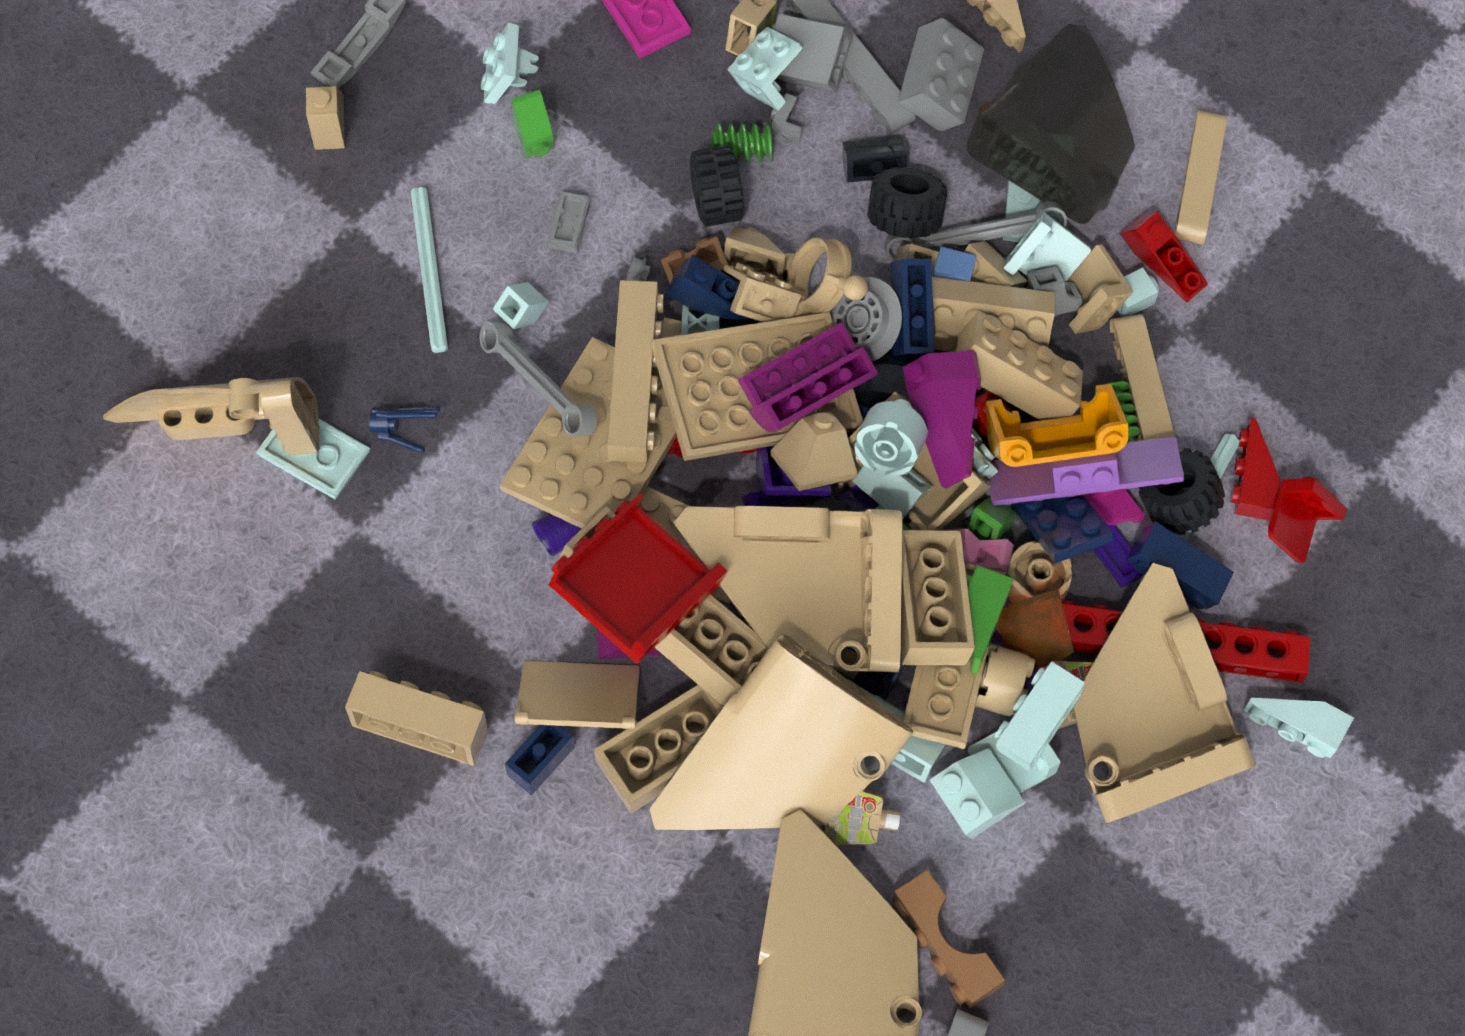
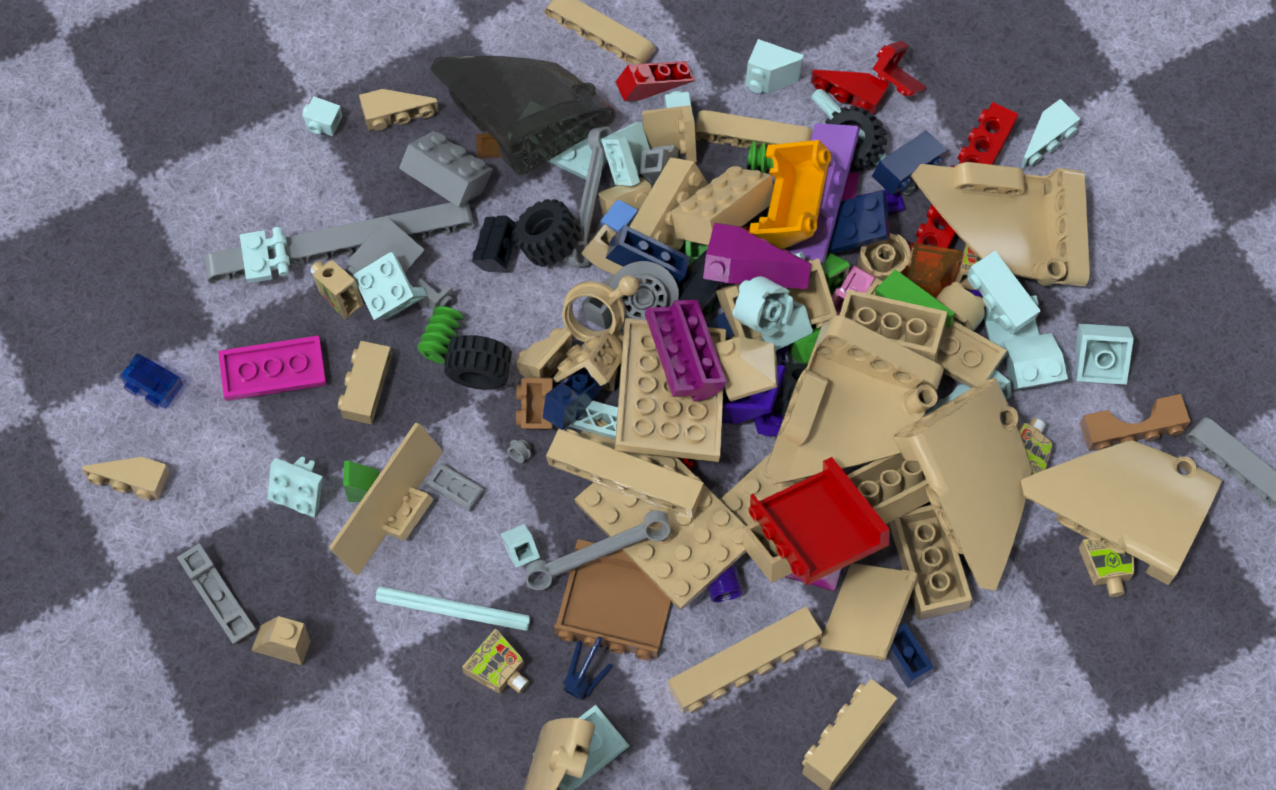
camera: 70 degrees left, 0 degrees up
(378, 331) = (496, 665): none -> torso
(474, 583) = (744, 660): none -> tan brick
(484, 425) = (613, 602): none -> medium nougat panel
(523, 160) = (391, 503): none -> tan bracket
(655, 92) = (365, 382): none -> tan brick
(739, 959) = (1107, 566): none -> torso
(1026, 874) = (1103, 353): none -> light aqua slope
(1232, 370) = (772, 68): none -> light aqua slope

